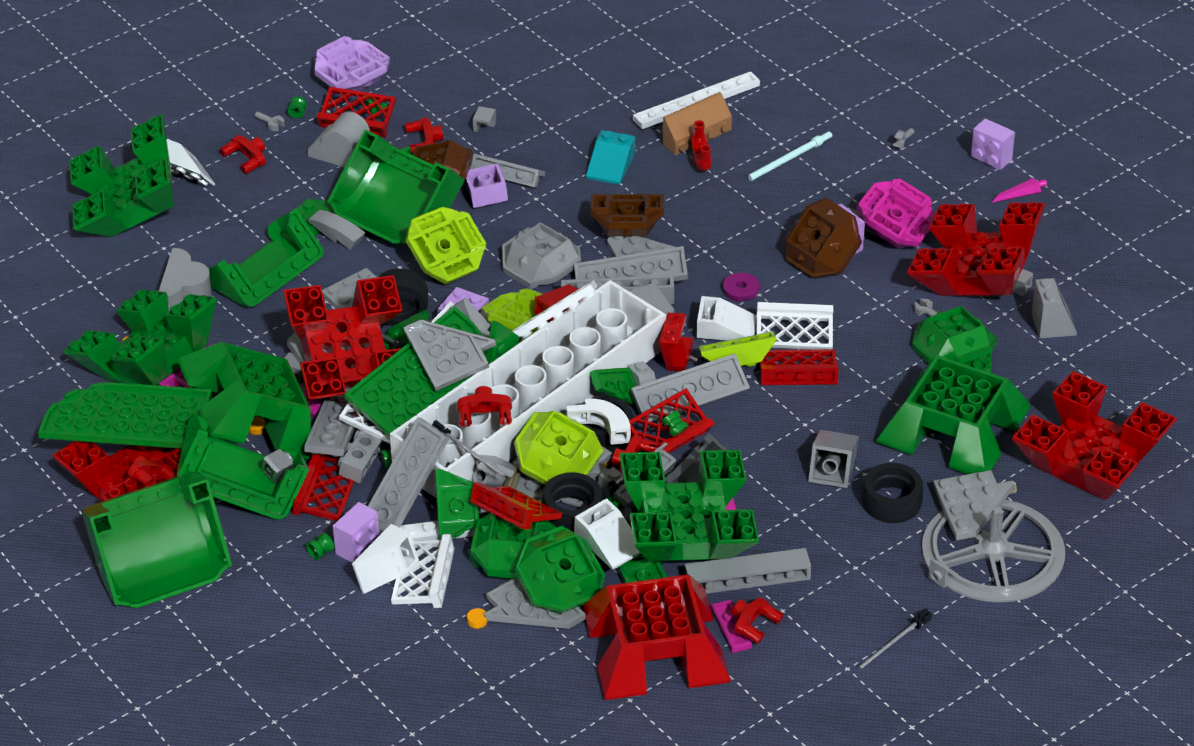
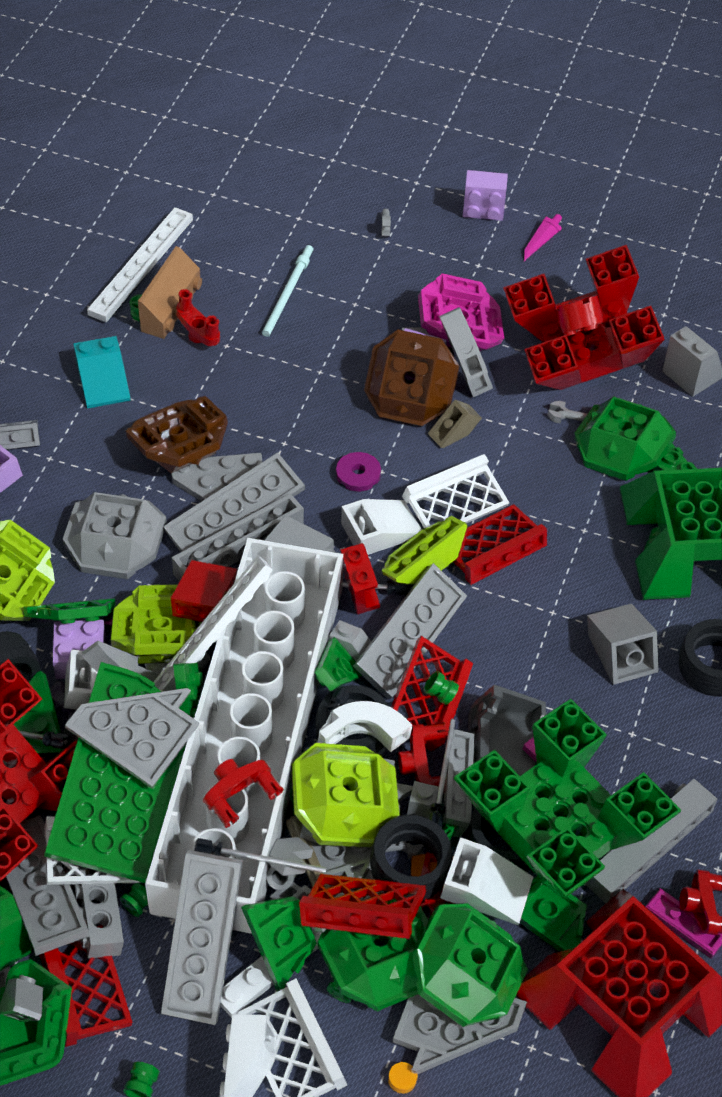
camera: 35 degrees left, 10 degrees up
(355, 531) = (181, 1040): lavender brick -> none
(467, 284) = (69, 611): none -> green wing
(835, 283) = (454, 424): none -> dark tan slope
(872, 235) = (466, 351): none -> light grey slope
(972, 238) = (579, 314): none -> red brick

